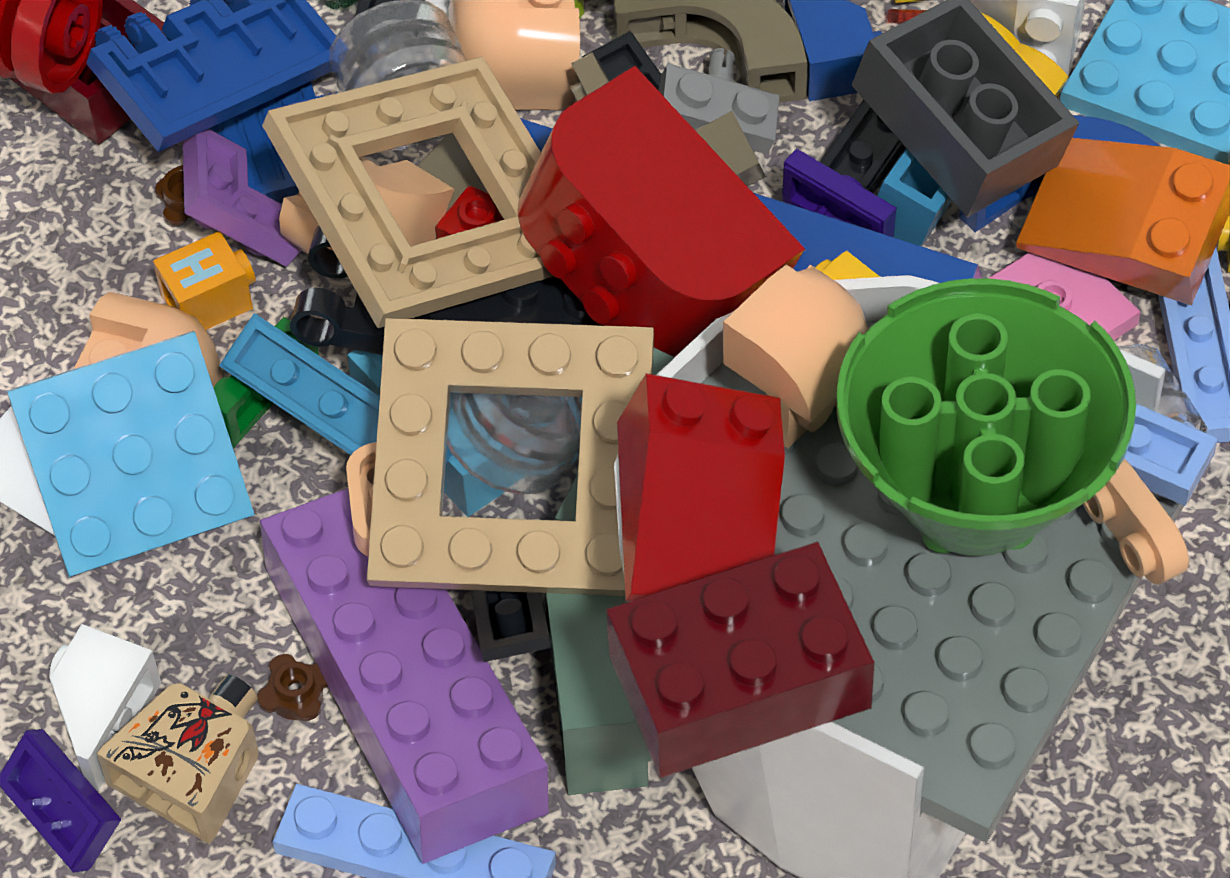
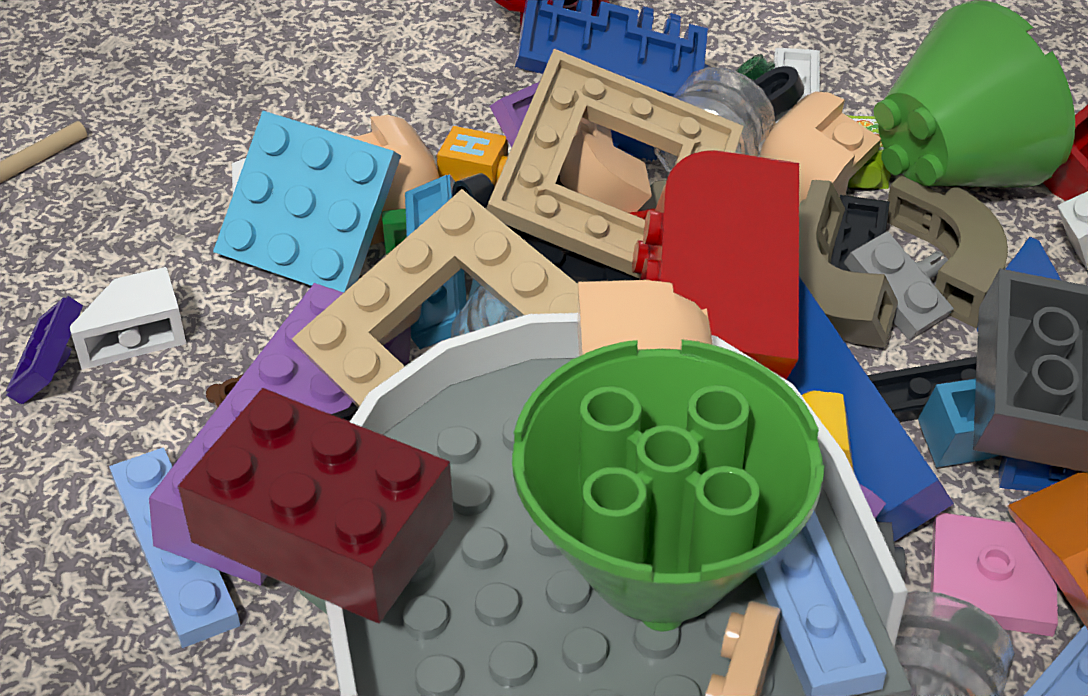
camera: 45 degrees right, 10 degrees down
(186, 755) = (132, 383): tan torso -> none
(696, 481) = (457, 381): red slope -> none
(838, 196) = (903, 383): dark purple plate -> none

